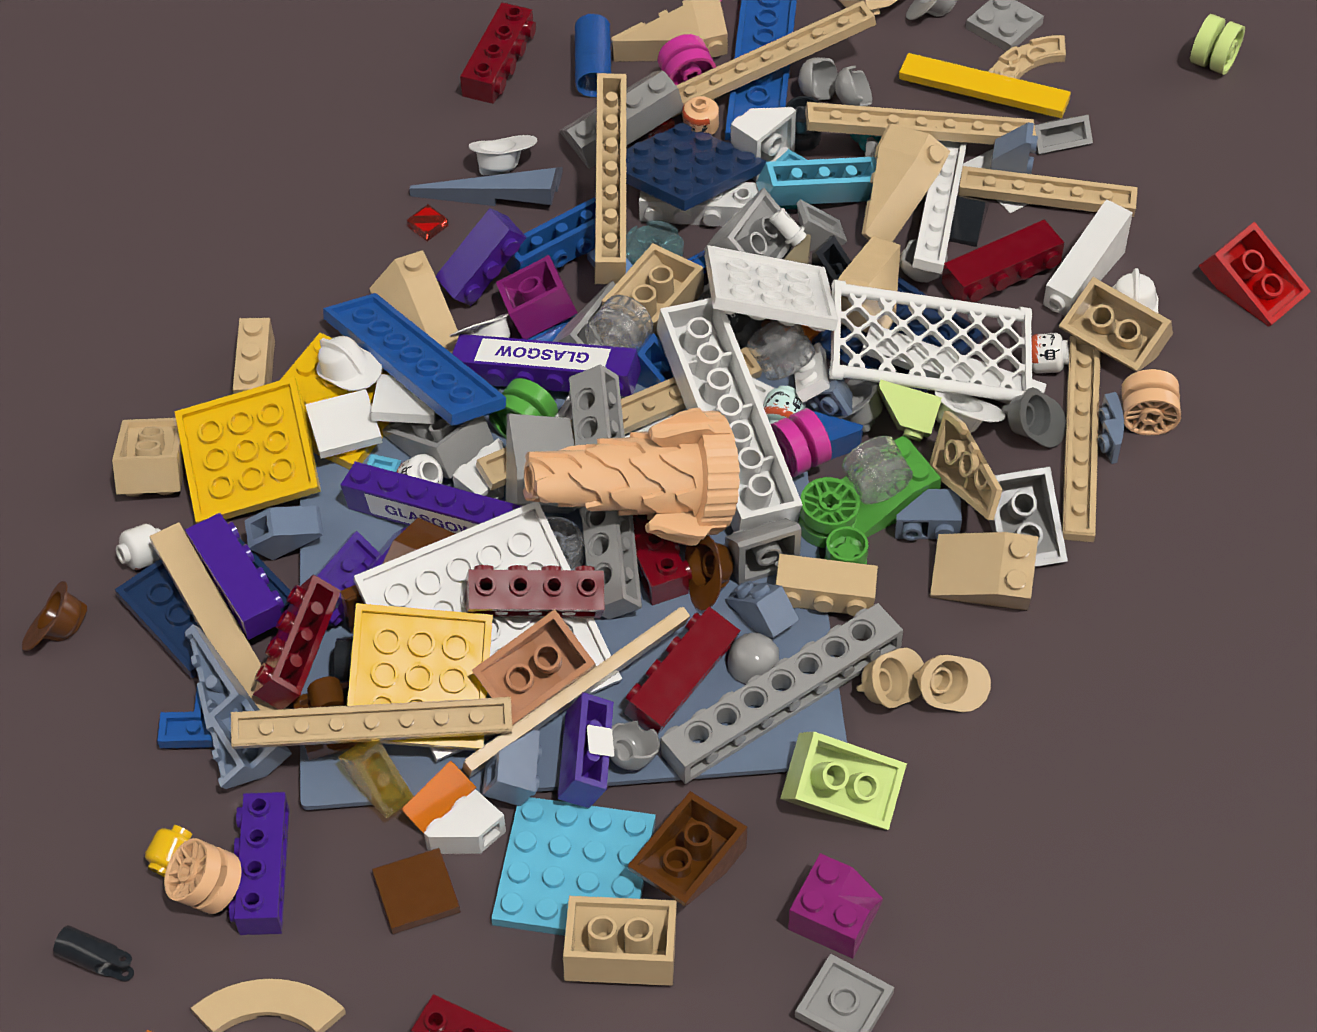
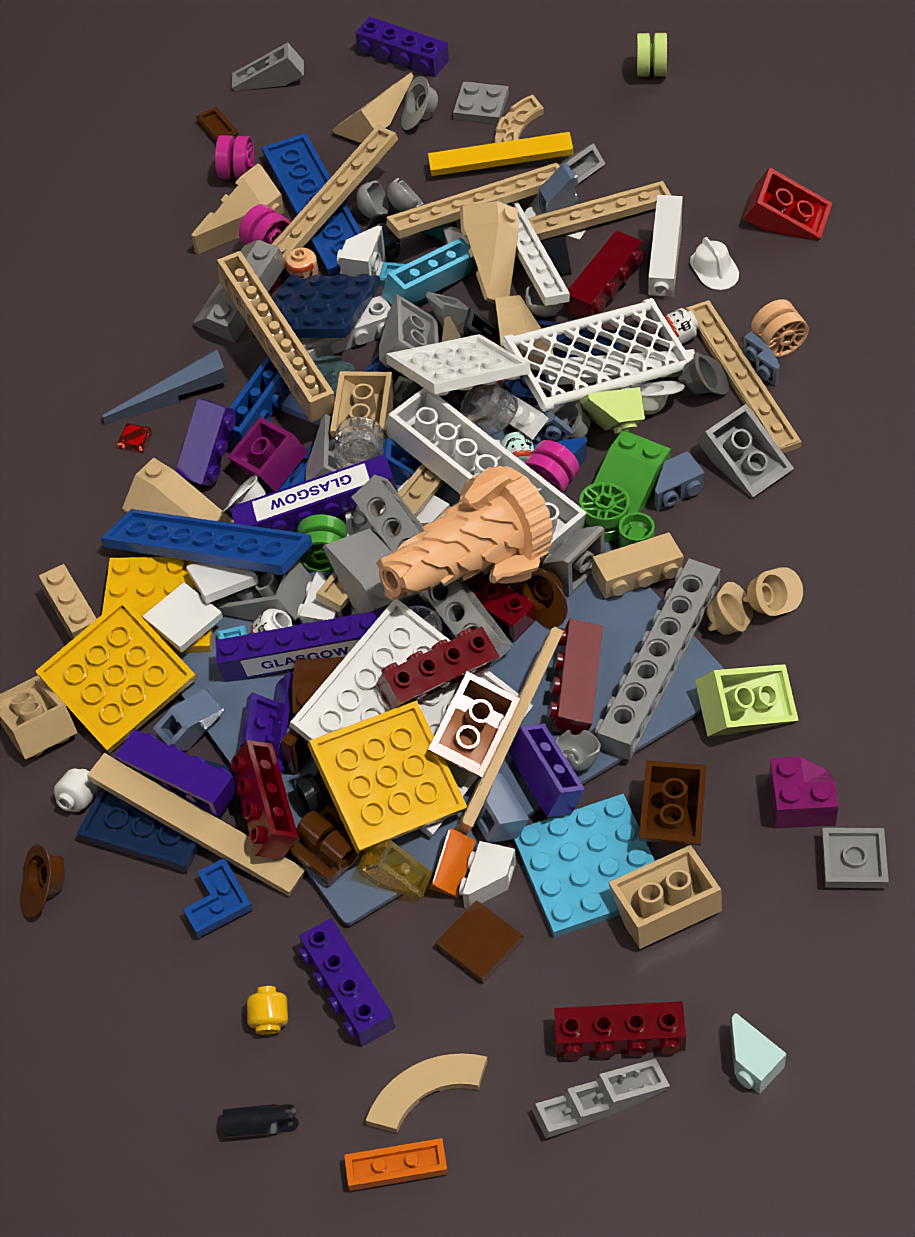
camera: 25 degrees left, 0 degrees up
(202, 876) = (310, 1014): light nougat wheel -> none
(219, 696) = (262, 893): sand blue wedge -> none
(347, 364) = (156, 570): white piece -> none
(371, 722) = (373, 828): tan tile -> none
(497, 53) = (103, 284): dark red brick -> none
(501, 155) = (161, 359): white piece -> none
(591, 52) = (183, 254): blue piece -> none
(600, 740) = (556, 756): white sticker -> none
(752, 656) = (619, 644): light grey hair -> none
(763, 607) = (603, 602): sand blue slope -> none
(788, 227) = (436, 319): white pin -> none
(877, 470) = (625, 461): clear wheel -> none
(964, 466) = (688, 430): tan wedge -> none
(985, 568) = (744, 499): tan slope -> none
(1117, 325) = (718, 283): tan slope -> none

